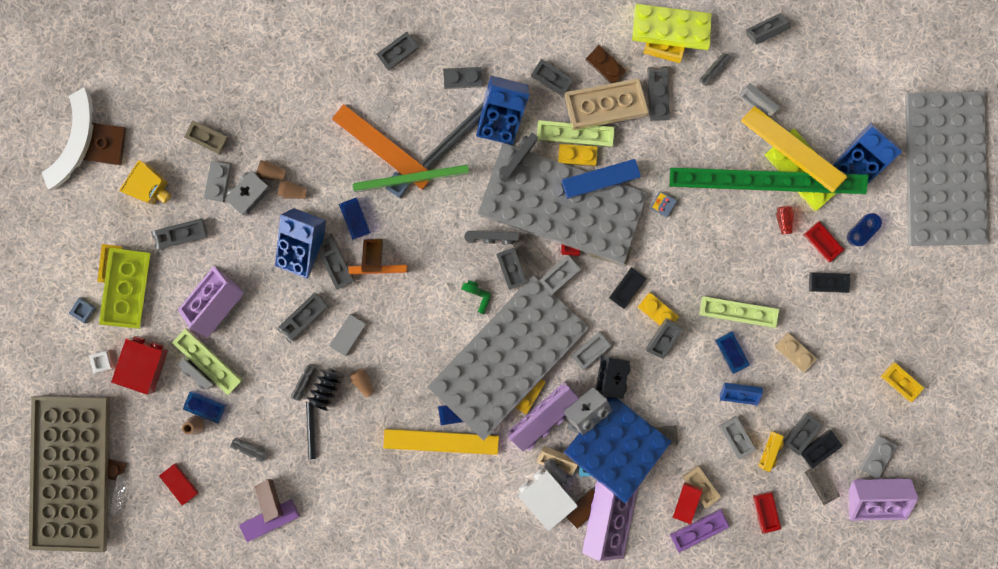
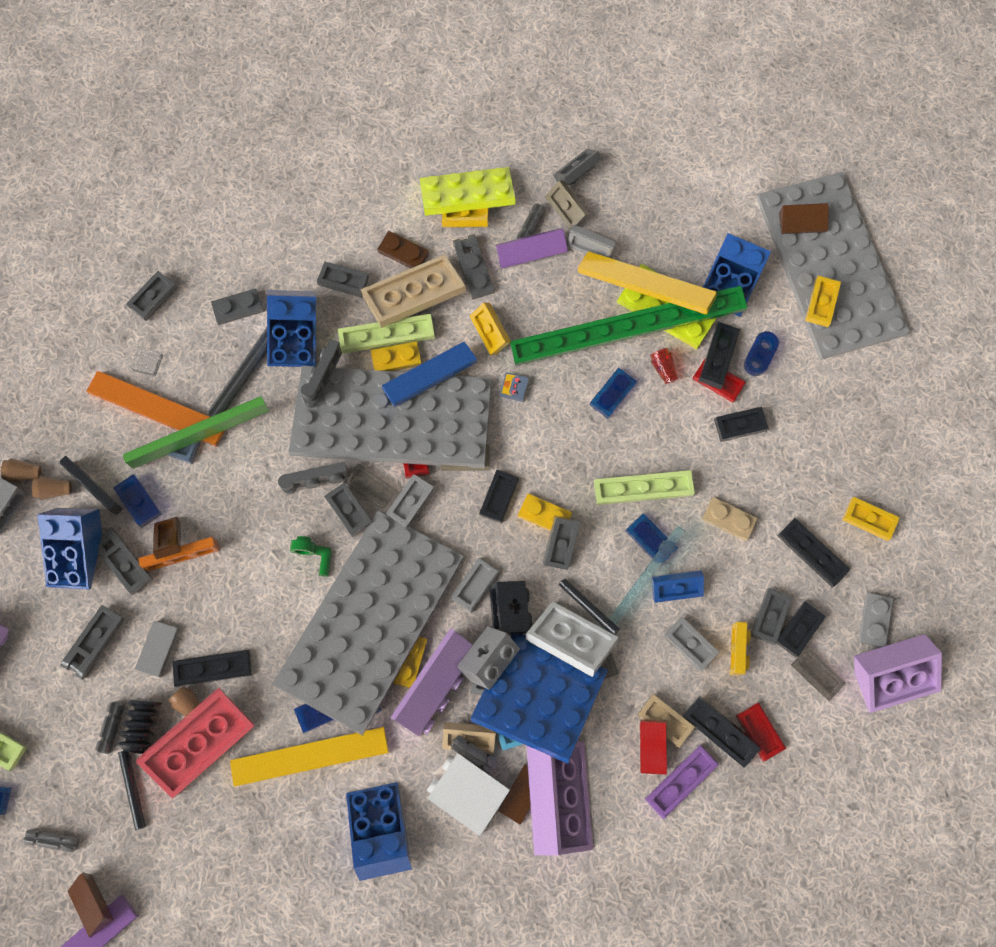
camera: 15 degrees left, 15 degrees down
(322, 197) = (88, 483): none -> black tile
(363, 411) = (195, 743): none -> coral plate
(384, 359) = (212, 668): none -> black tile
(477, 506) = (378, 832): none -> blue slope
(652, 412) = (572, 638): none -> white plate
(657, 151) = (490, 328): none -> yellow plate
(671, 391) = (585, 603): none -> black bar
(709, 91) = (531, 248): none -> medium lavender tile
(738, 230) = (613, 393): none -> clear blue plate
(739, 505) = (721, 731): none -> black plate
(741, 365) = (665, 549): none -> clear light blue bar
(749, 61) = (567, 204): none -> dark tan plate
(831, 222) = (719, 355): none -> black tile
(850, 395) = (813, 552): none -> black tile
(928, 202) = (823, 301): none -> yellow plate
(938, 127) = (804, 218): none -> reddish brown slope

